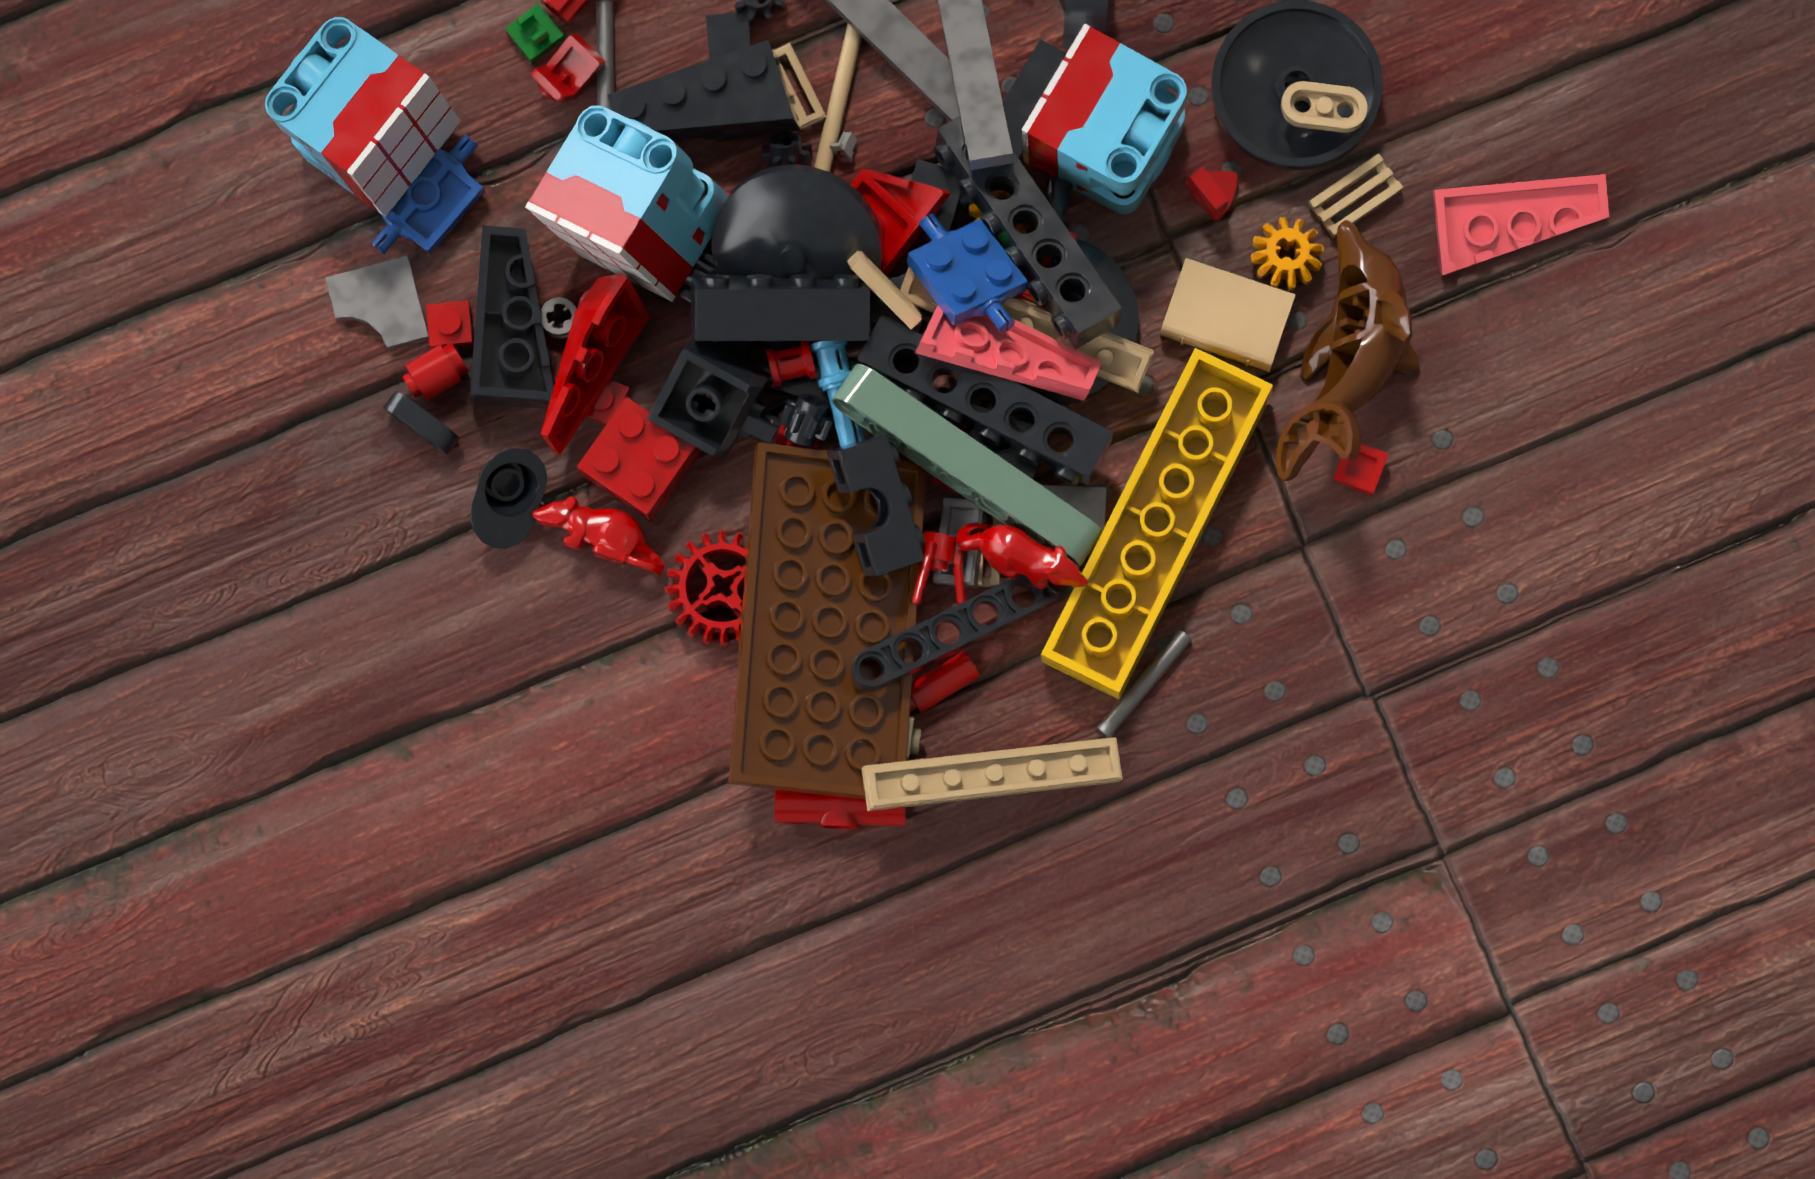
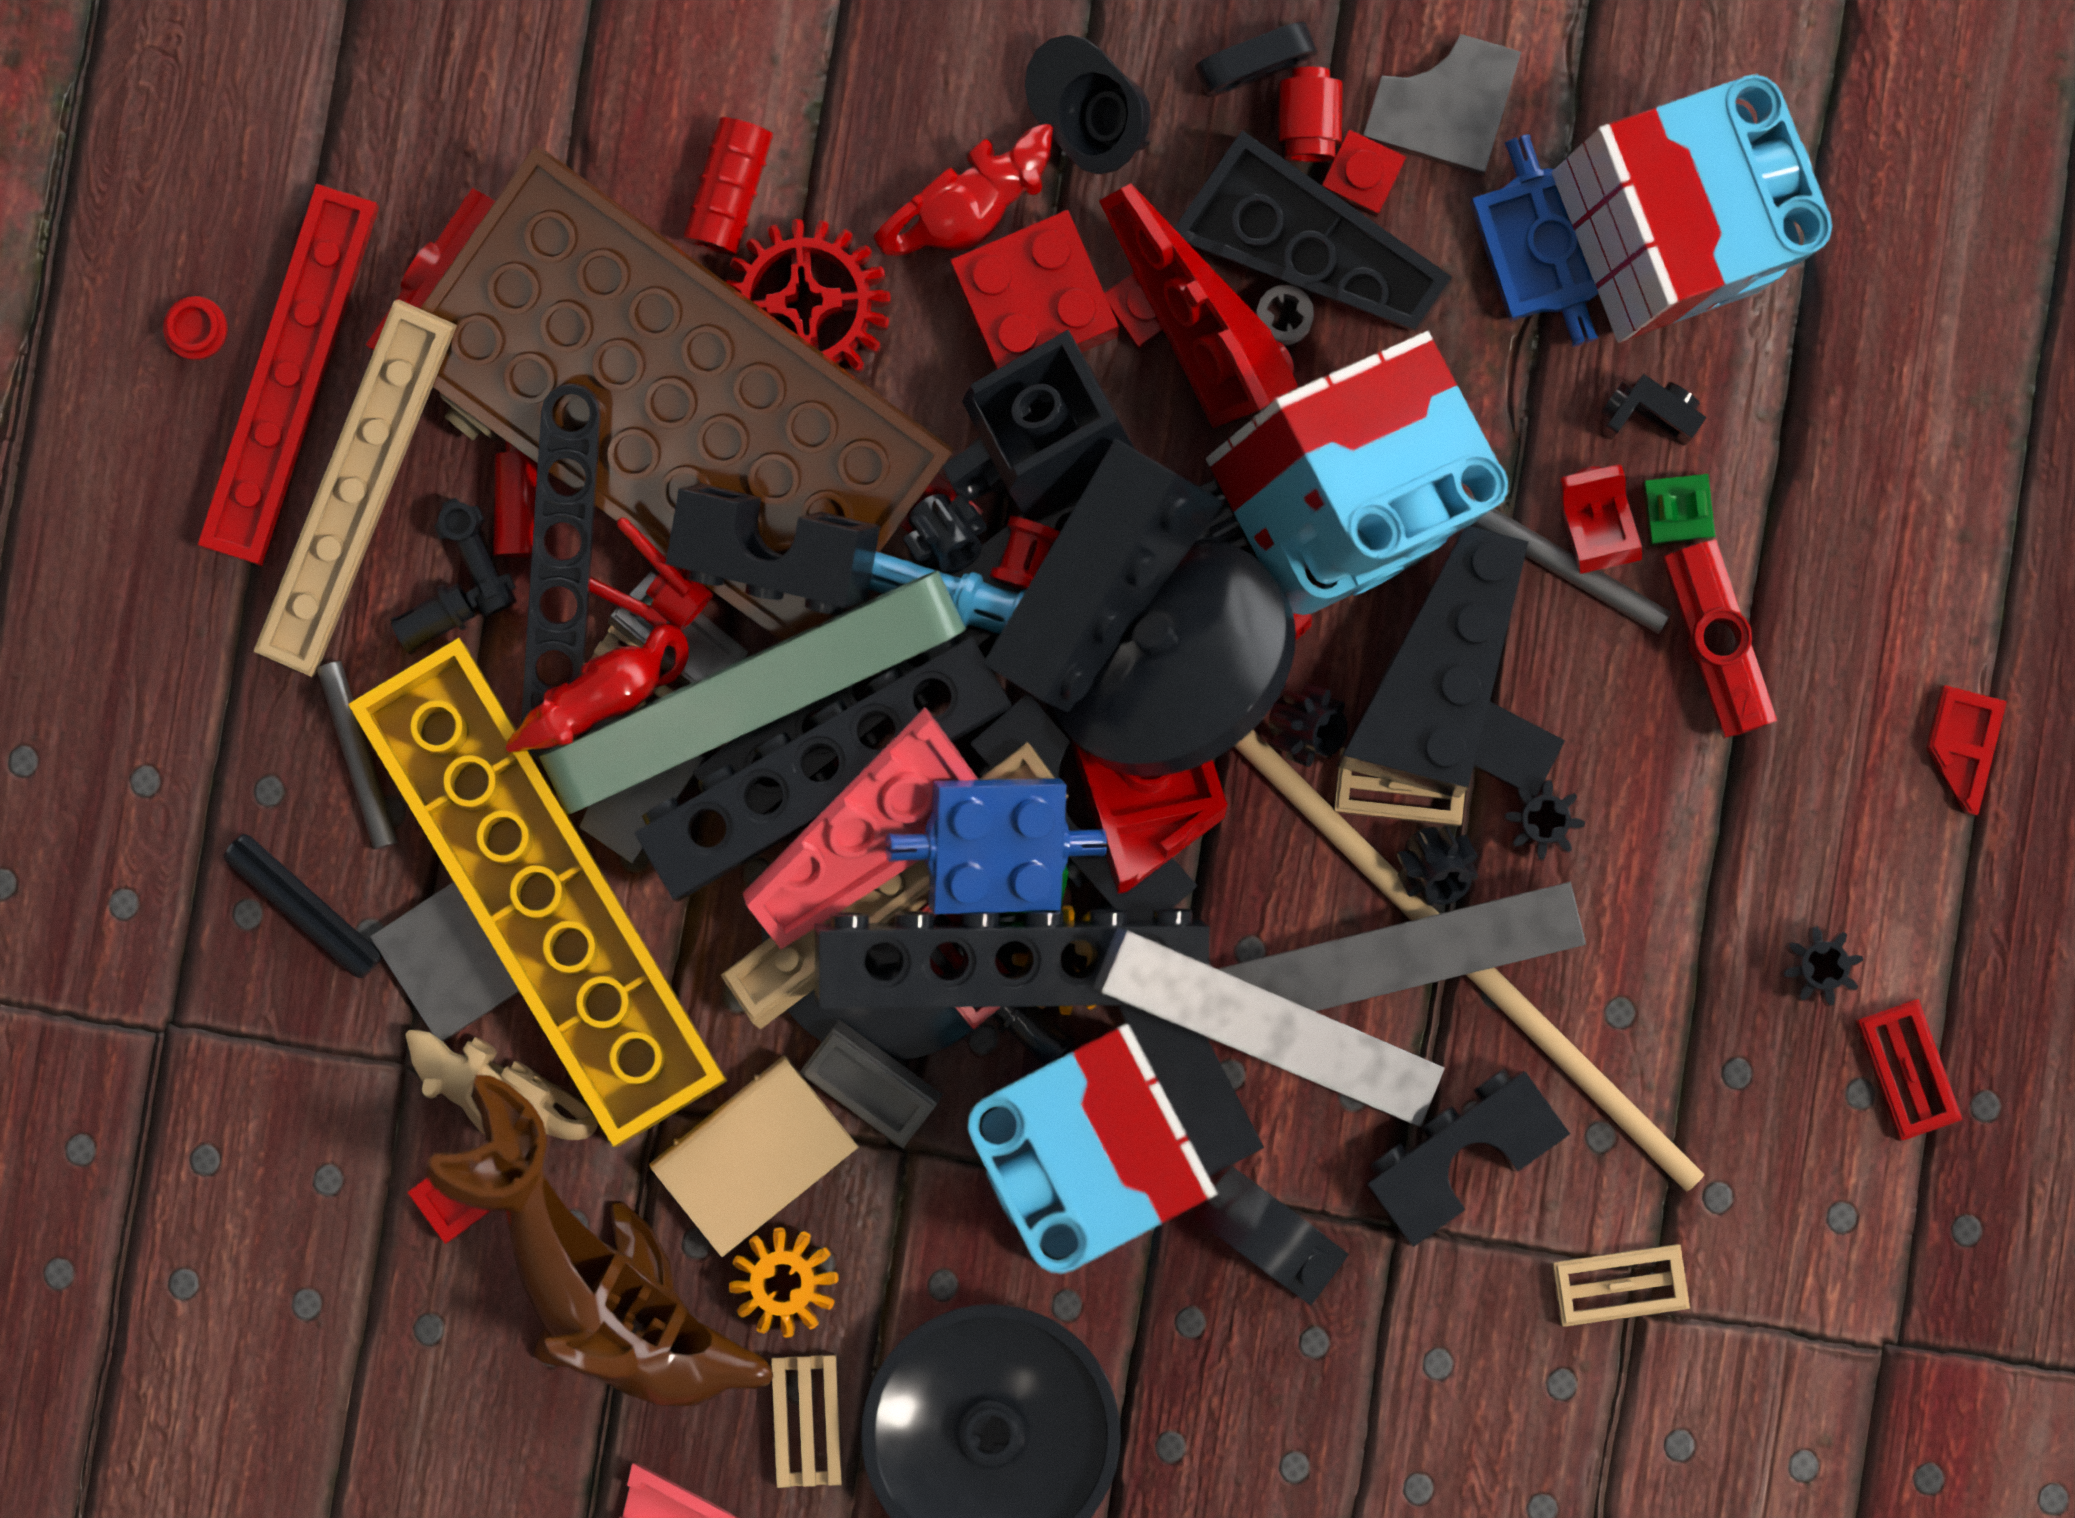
camera: 120 degrees right, 5 degrees up
(481, 71) = (1667, 408): none -> black bracket
(681, 676) = (728, 186): none -> red axle
(821, 39) = (1437, 865): none -> black gear
(844, 147) = (1280, 810): light grey piece -> none
(885, 289) = (1039, 726): tan tile -> none
(950, 861) = (288, 375): none -> red plate
(956, 934) = (195, 328): none -> red plate
(974, 704) = (462, 526): none -> black bar
(1037, 688) = (433, 618): none -> black pin
(1144, 275) = (871, 1083): none -> flat silver tile
(1213, 190) = (927, 1244): red tile -> none
(1228, 558) = (445, 963): none -> flat silver tile
(1250, 659) = (302, 906): none -> black axle
(1284, 497) = (455, 1074): none -> tan animal
(1324, 102) = (932, 1445): tan plate -> none

